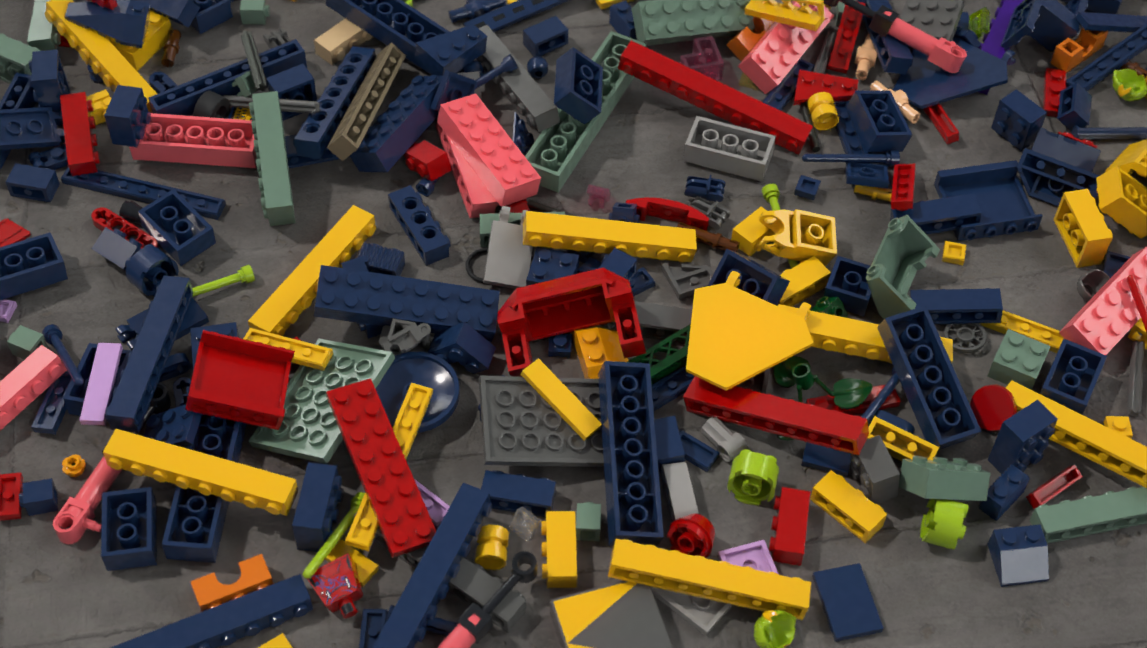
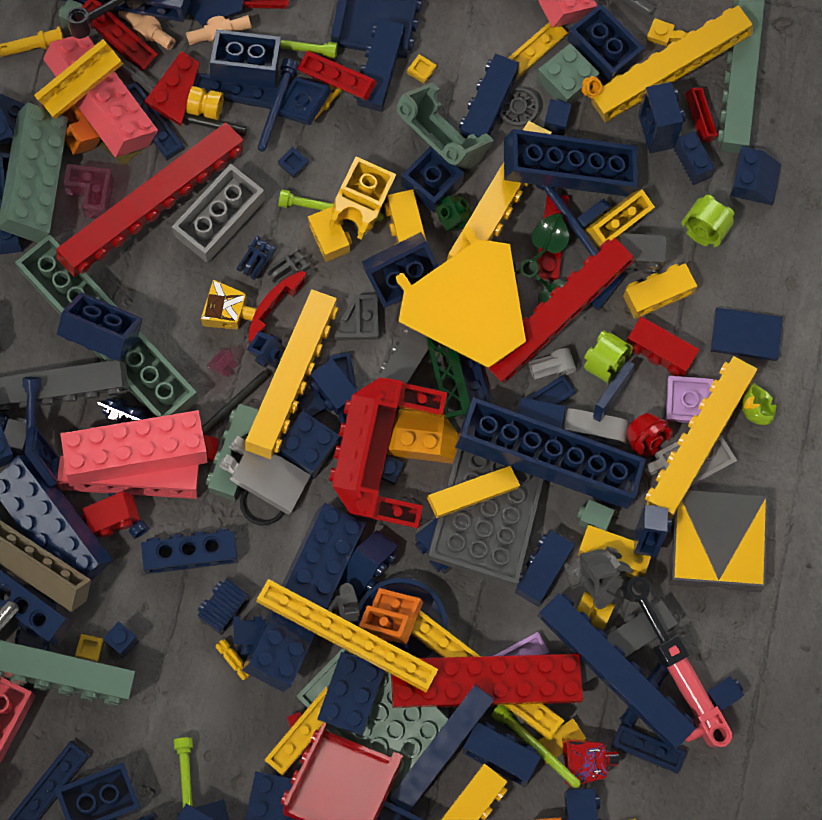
camera: 70 degrees left, 20 degrees up
(301, 285) = (212, 678): yellow brick -> none
(303, 449) = (441, 748): none -> dark blue tile
(309, 189) = (89, 648): none -> yellow tile
(322, 202) = (120, 639): none -> dark blue brick
(329, 365) = (351, 694): none -> dark blue plate
(374, 331) = (347, 635): none -> yellow plate
(410, 370) = (391, 616): none -> orange plate
(525, 528) = (601, 574): none -> dark grey piece
(537, 67) = (20, 356): dark blue piece -> none
(588, 556) = (651, 530): none -> dark blue brick
(647, 179) = (226, 307): none -> torso
(716, 241) = (315, 283): reddish brown pin -> none
(721, 491) = (613, 391): none -> dark blue tile
(926, 180) = (328, 49): none -> lime piece
(944, 479) = (677, 201): sand green brick -> none
(972, 366) = (557, 117): none -> dark blue brick
(992, 406) = (611, 123): red tile -> none
(1023, 374) = (596, 87): none -> light orange plate

